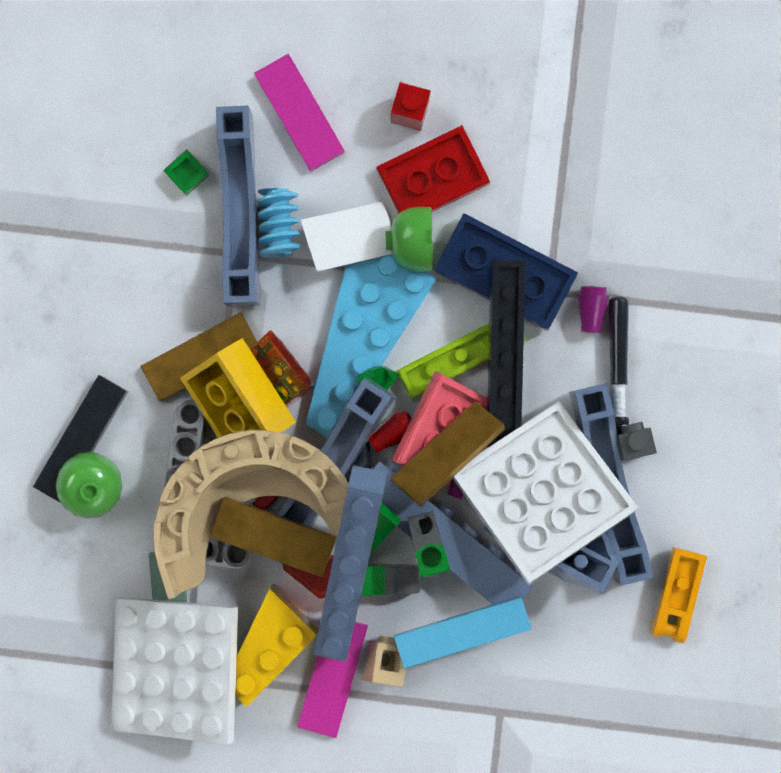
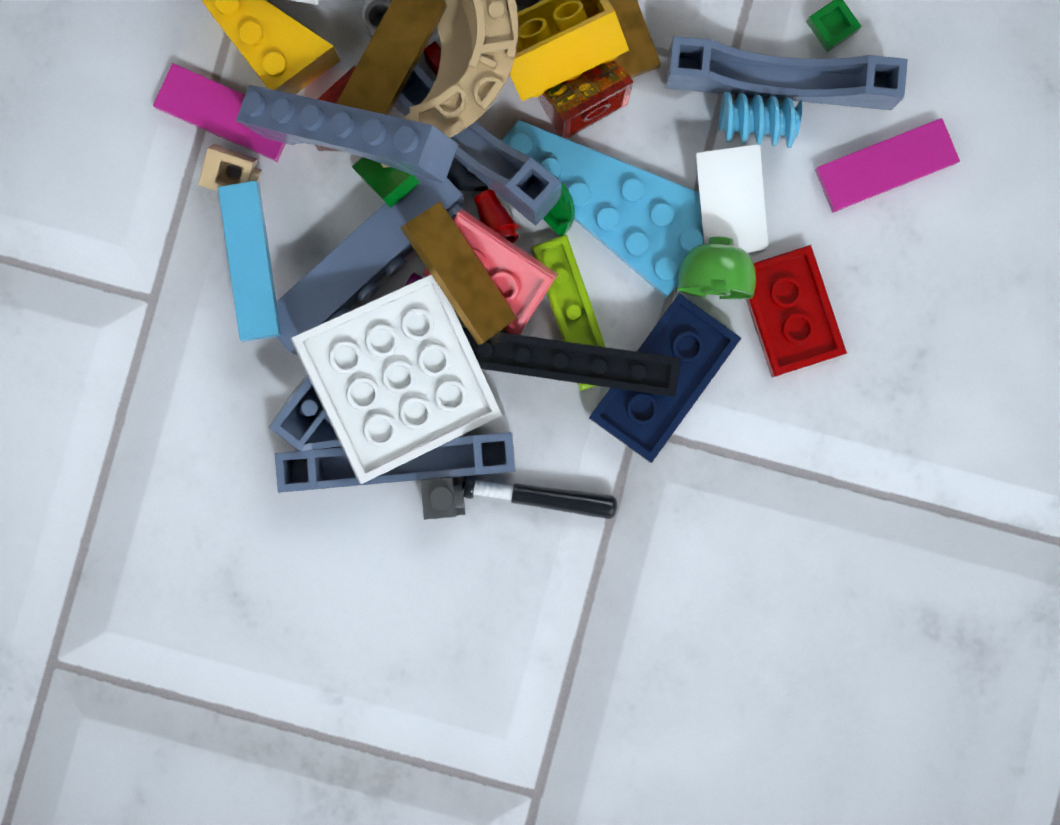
camera: 100 degrees right, 0 degrees up
(391, 579) = (325, 187): dark grey leg -> none
(410, 106) = (877, 293): red brick -> none
(428, 544) = (355, 232): leg -> none
(592, 307) = (608, 474): magenta cone -> none
(678, 594) = (257, 525): light orange plate -> none

